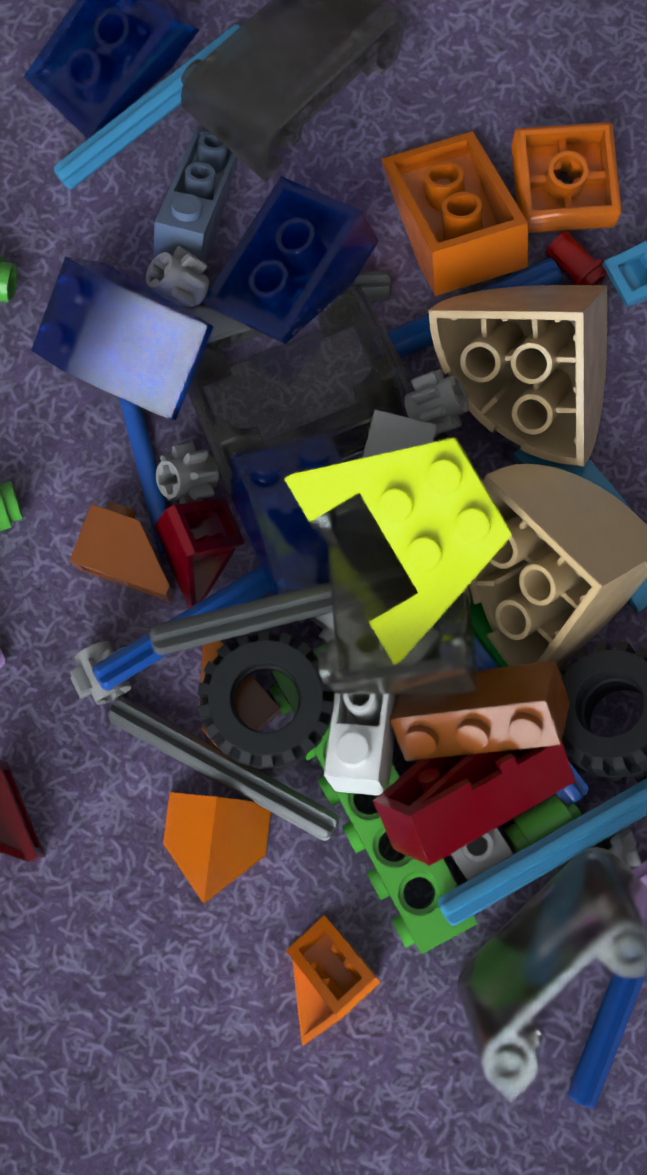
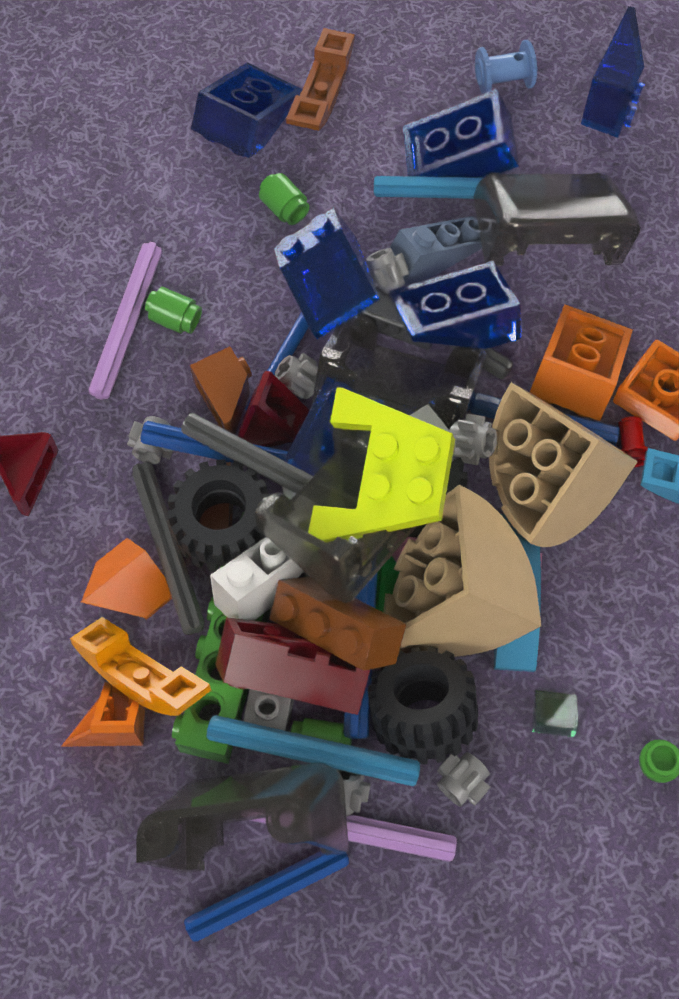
camera: 40 degrees right, 15 degrees down
(321, 919) = (135, 673): none -> light orange slope

